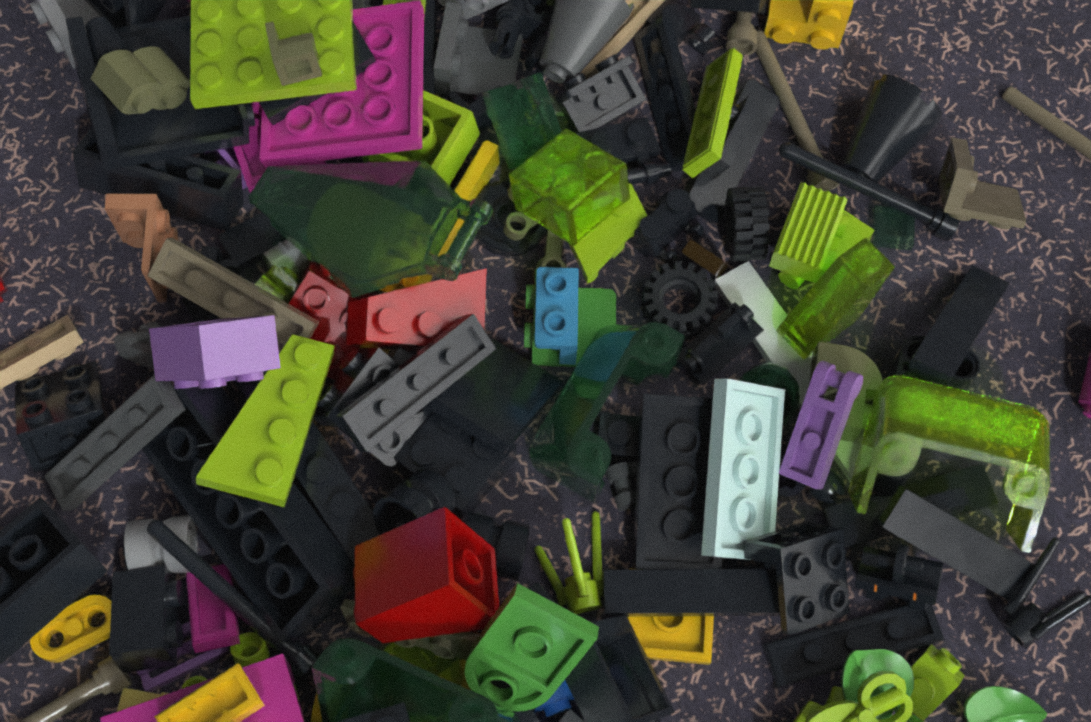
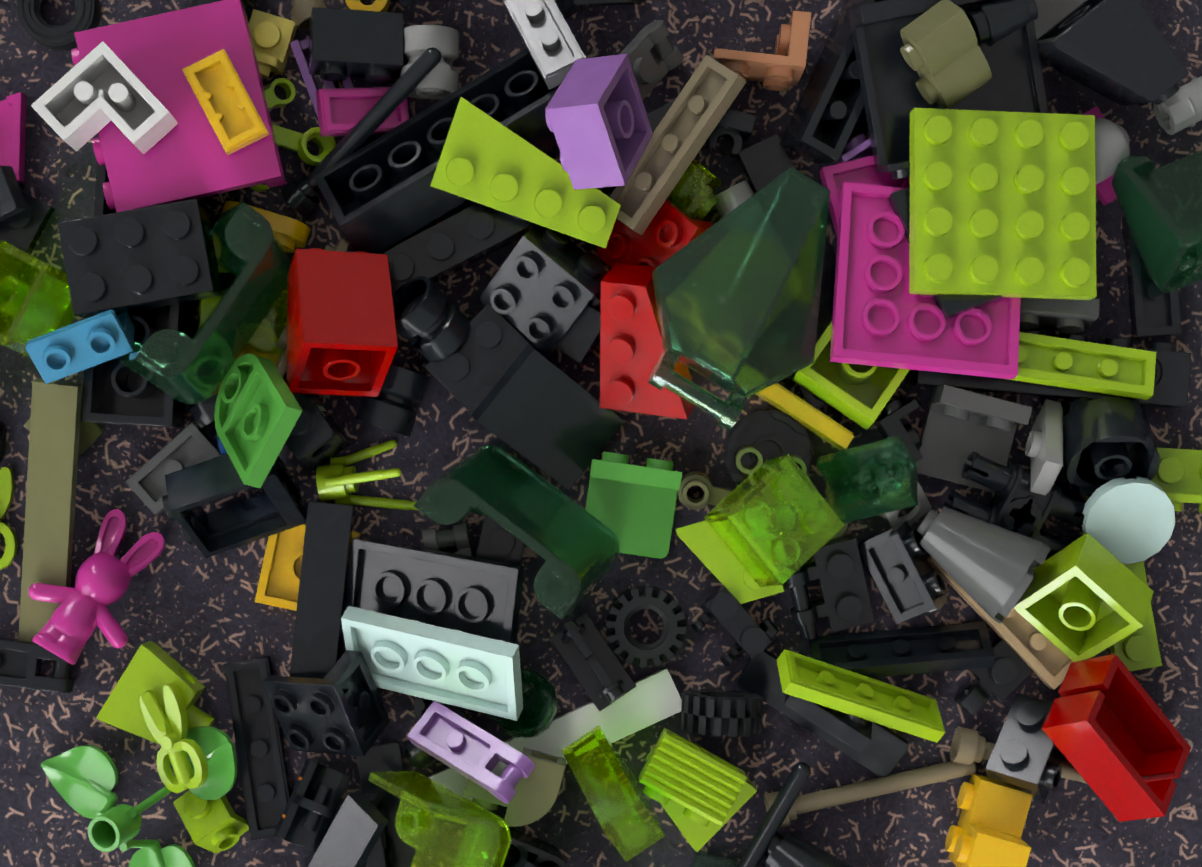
camera: 100 degrees right, 20 degrees up
(293, 57) = (947, 224): olive panel -> none
(415, 383) = (552, 332): plate -> none
(557, 311) = (632, 490): dark azure bracket -> none
(705, 258) = (689, 661): dark brown tile -> none

